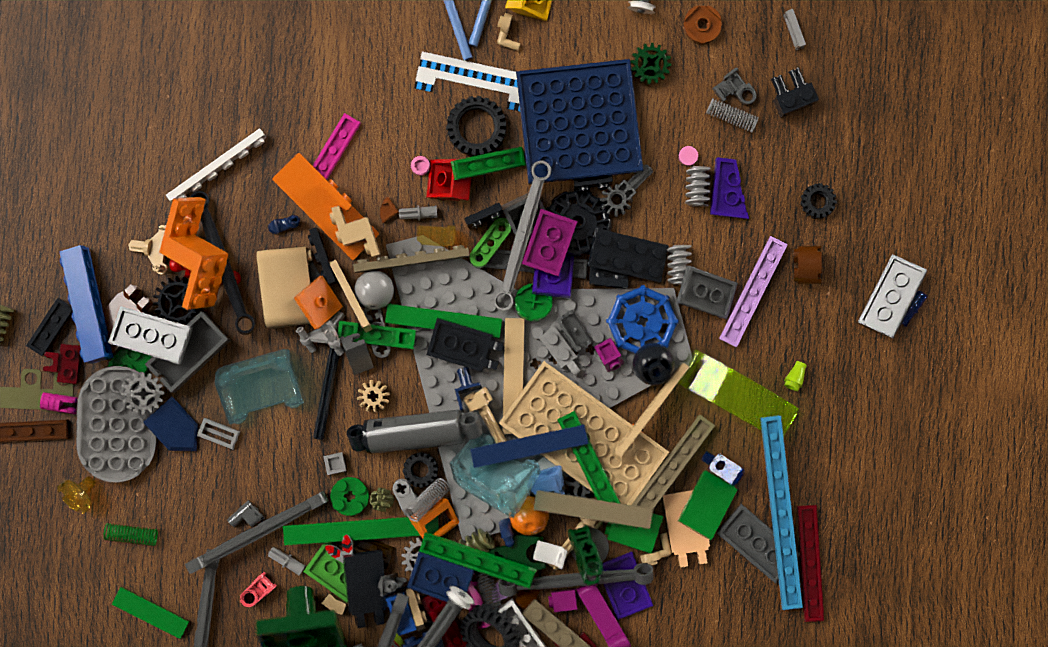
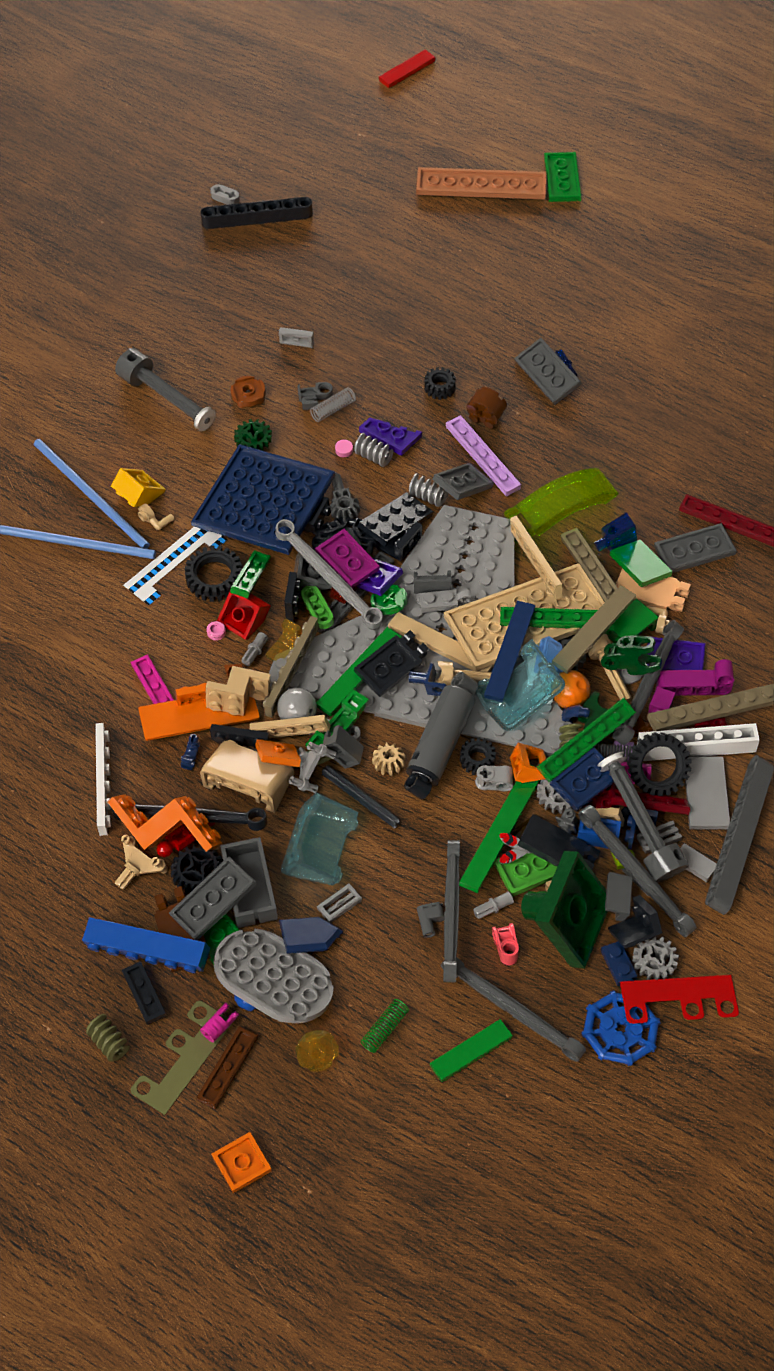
camera: 60 degrees left, 30 degrees down
(65, 363) = (185, 998): dark red plate -> none
(142, 401) = (260, 933): light grey gear -> none
(335, 463) = (428, 820): light grey plate -> none
(343, 487) = (470, 815): green plate -> none
(381, 499) = (485, 797): olive gear -> none
(426, 497) = (509, 756): light grey piece -> none
(550, 553) = (616, 688): white bracket -> none
(609, 355) = (470, 565): magenta bracket -> none
(646, 310) = (456, 524): blue plate -> none
(653, 364) = (497, 534): black wheel -> none
(781, 512) = (678, 512): dark azure plate -> none
(794, 100) = (349, 361): black brick -> none
(796, 376) = (571, 459): lime cone -> none

